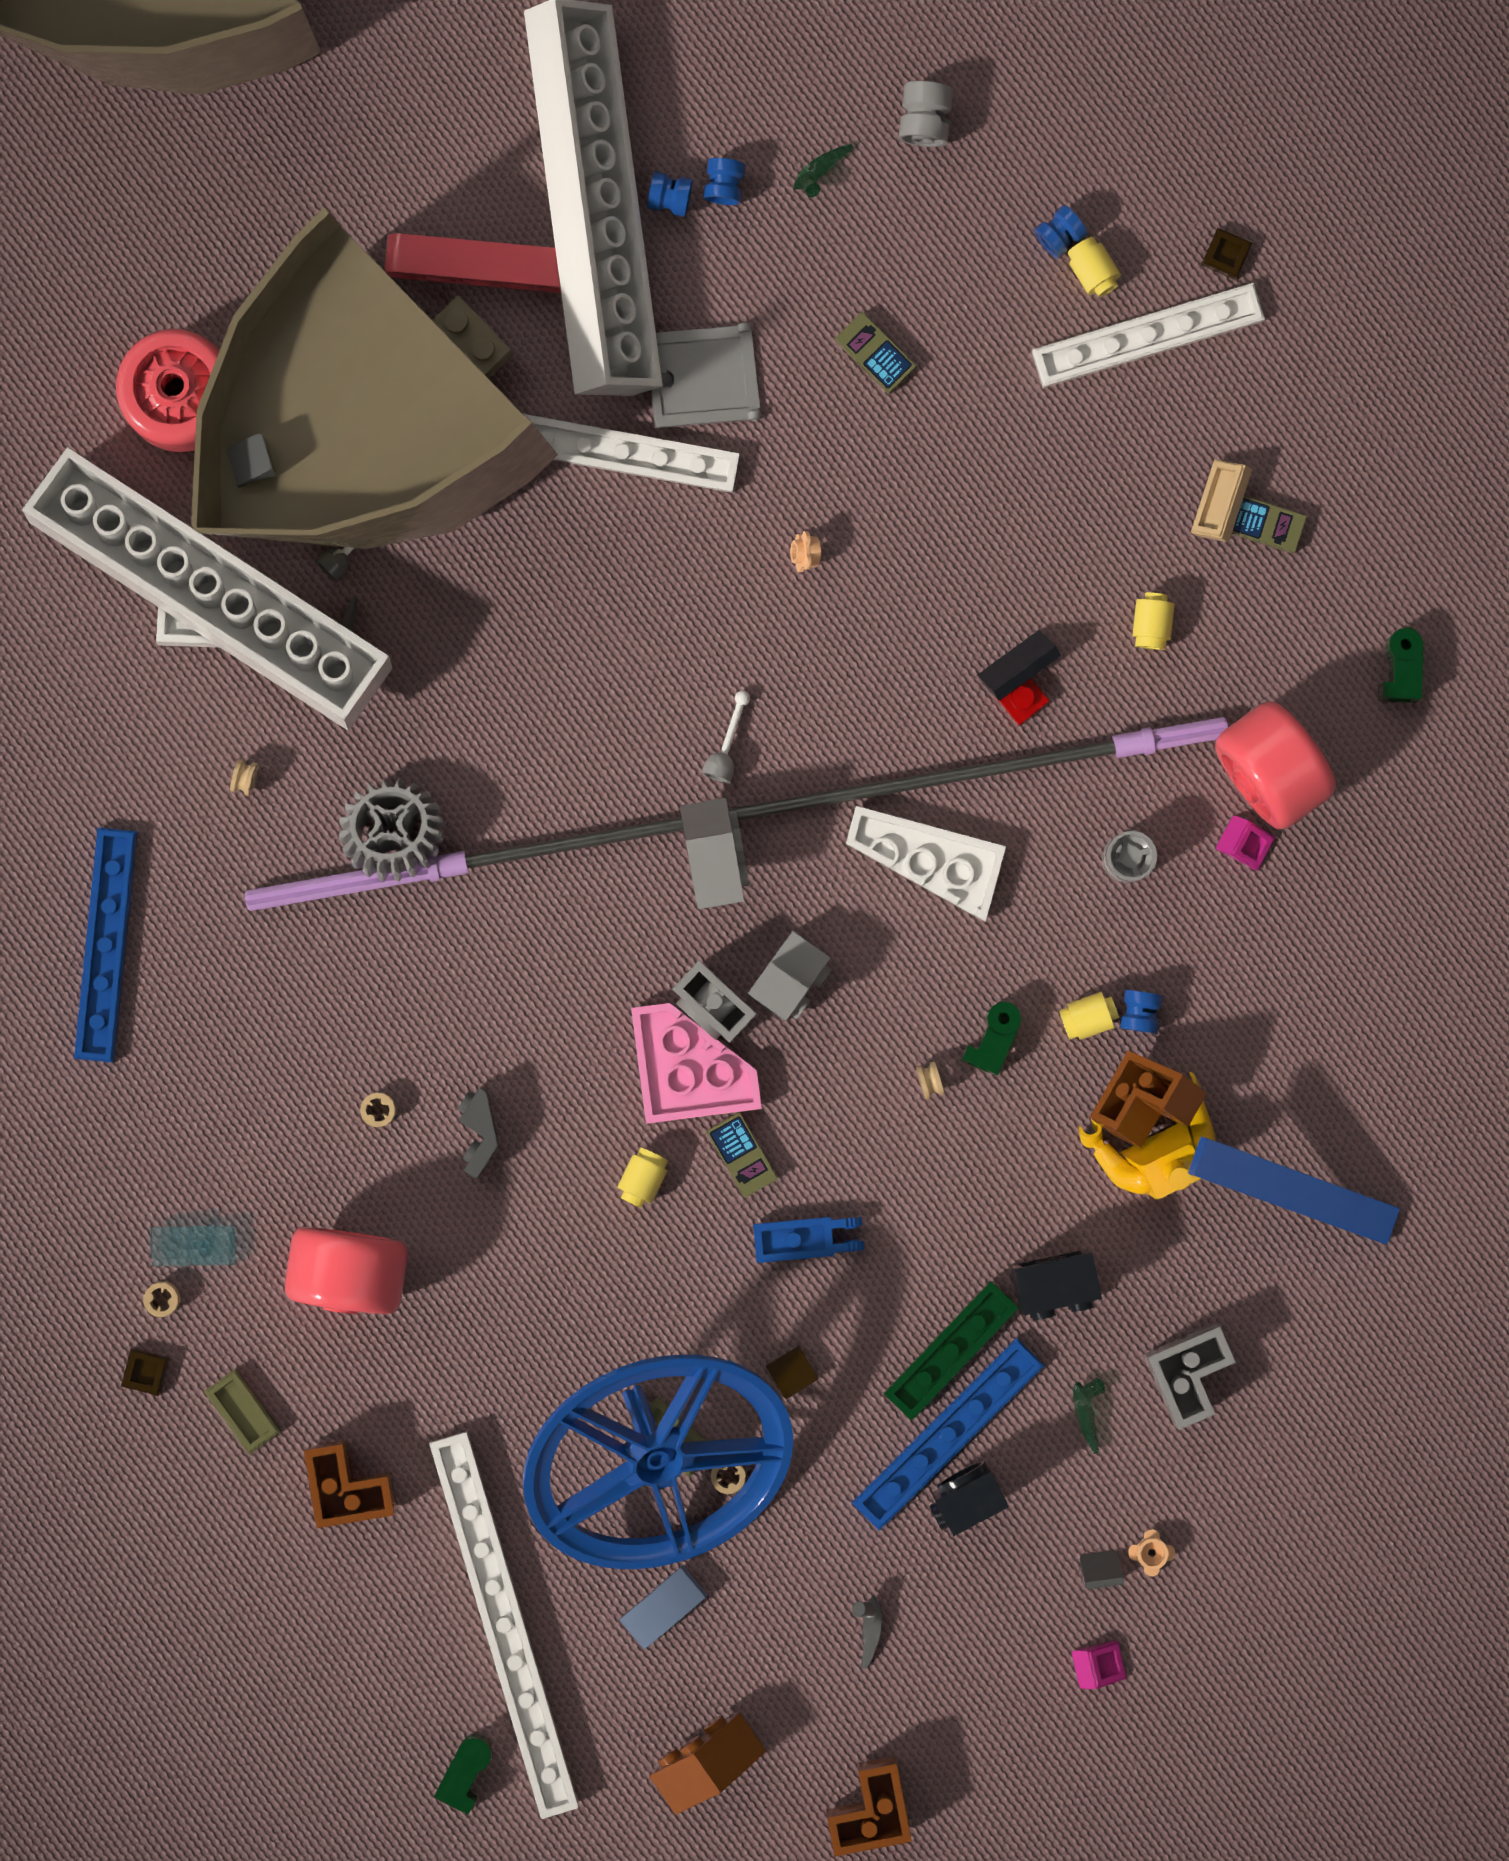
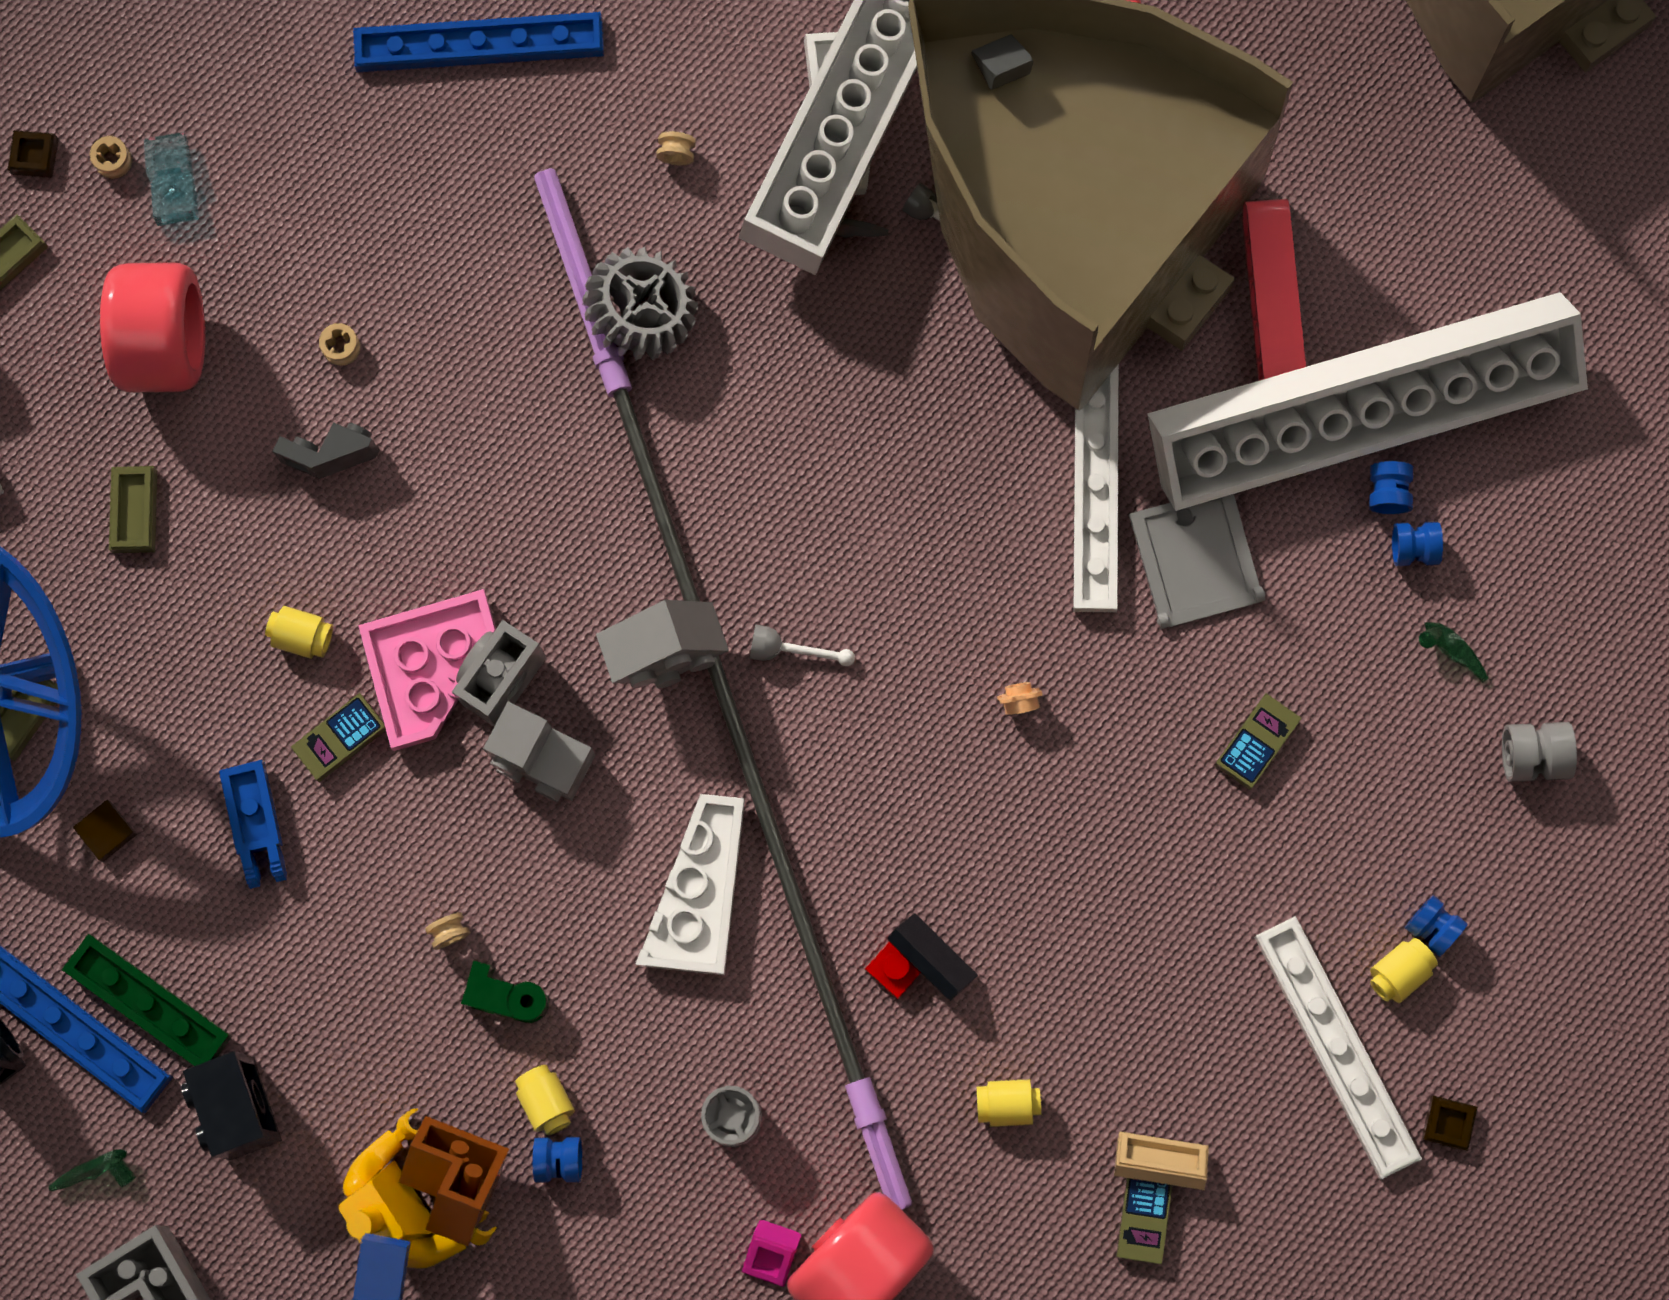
camera: 90 degrees right, 10 degrees down
(502, 1315) = (133, 509): none -> olive tile

